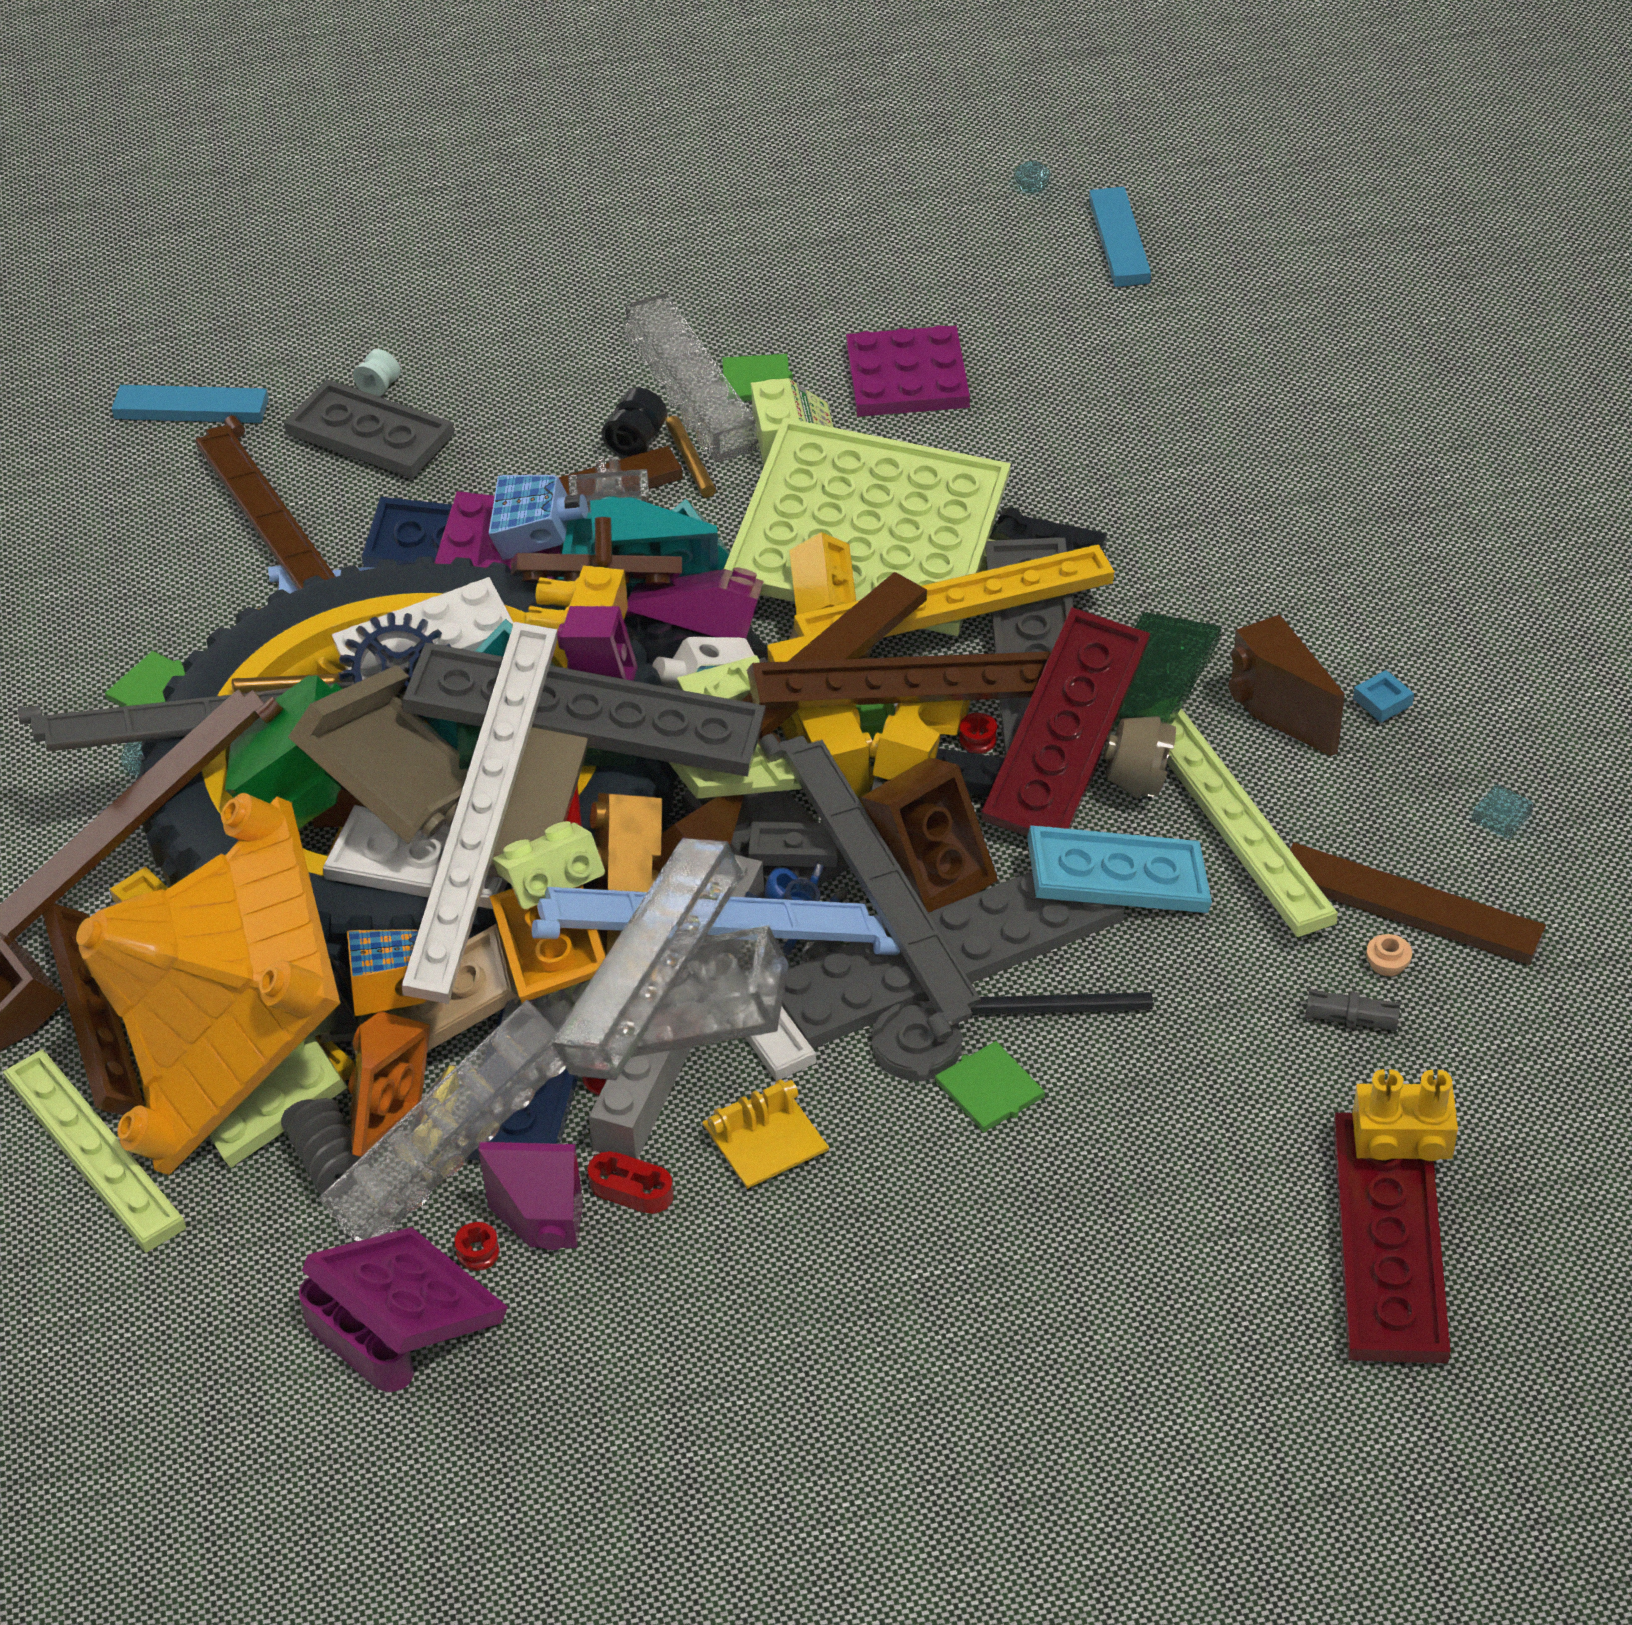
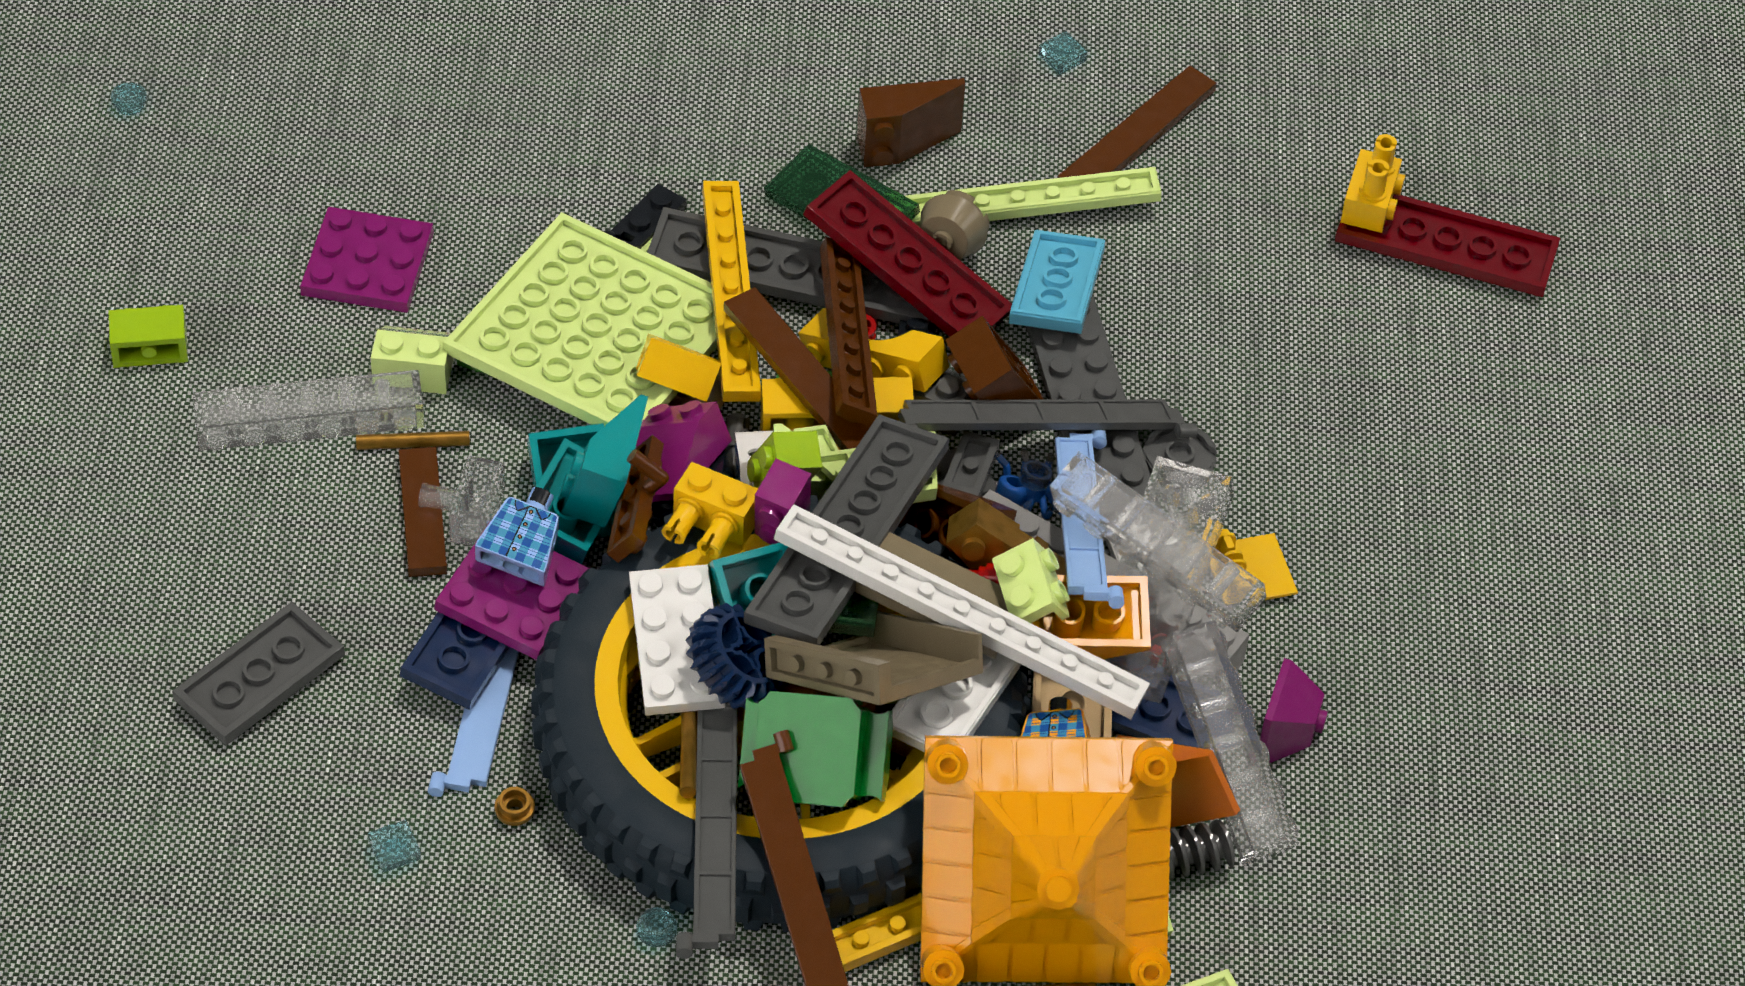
camera: 80 degrees left, 5 degrees up
(145, 681) = (554, 909): bright green piece -> none
(189, 403) = (136, 819): dark azure tile -> none
(193, 559) = (394, 846): none -> clear light blue plate
(261, 503) = (354, 774): reddish brown piece -> none
(360, 1350) = (1371, 878): magenta beam -> none
(376, 372) = (178, 650): light aqua wheel -> none
(404, 1289) = (1367, 814): magenta plate -> none
(478, 1259) = (1315, 768): red bush -> none
(630, 1182) = (1265, 660): red beam -> none
(634, 422) = (364, 463): black wheel -> none
(665, 647) = (792, 447): none -> lime brick
(738, 259) = (148, 336): none -> lime brick
(745, 370) = (319, 361): bright green piece -> none
(989, 1086) = (1237, 425): bright green piece -> none
(1064, 1003) = (1172, 351): black bar -> none
(1119, 236) = (250, 64): dark azure tile -> none
(1353, 1010) = (1234, 196): dark grey pin -> none
(1383, 696) = (919, 71): dark azure plate -> none
(1389, 954) = (1186, 160): light nougat plate -> none

